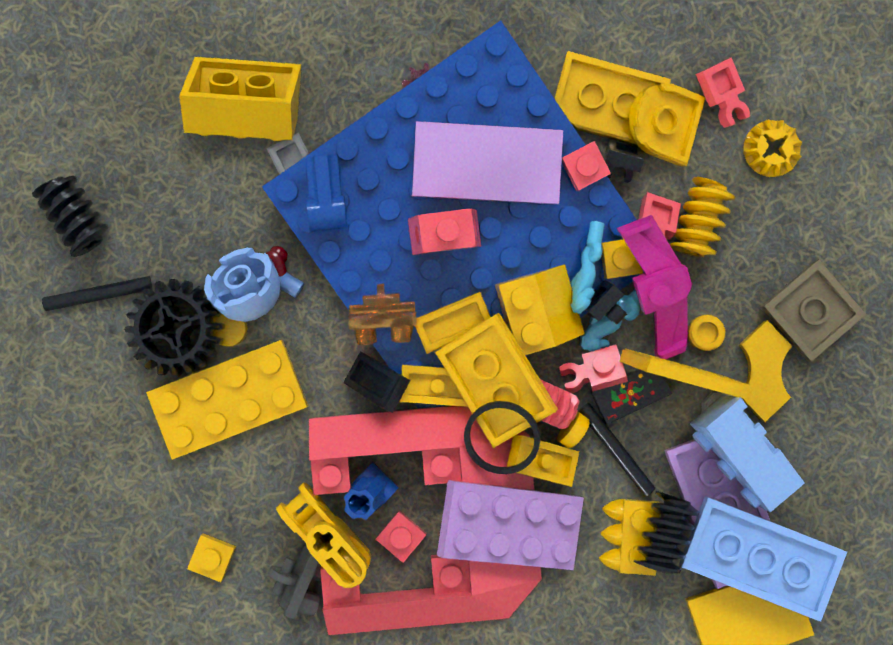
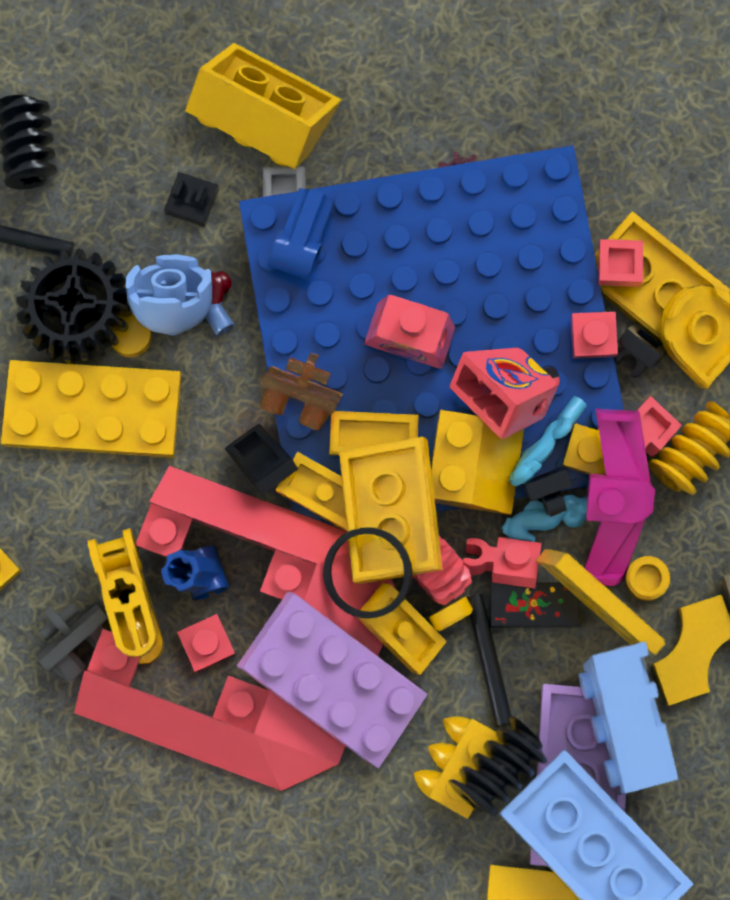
camera: 25 degrees right, 10 degrees down
(223, 199) = (191, 199): none -> black tile
(487, 163) = (489, 283): lavender tile -> none
(540, 244) = (505, 388): none -> coral torso
(579, 98) = (620, 263): none -> coral plate

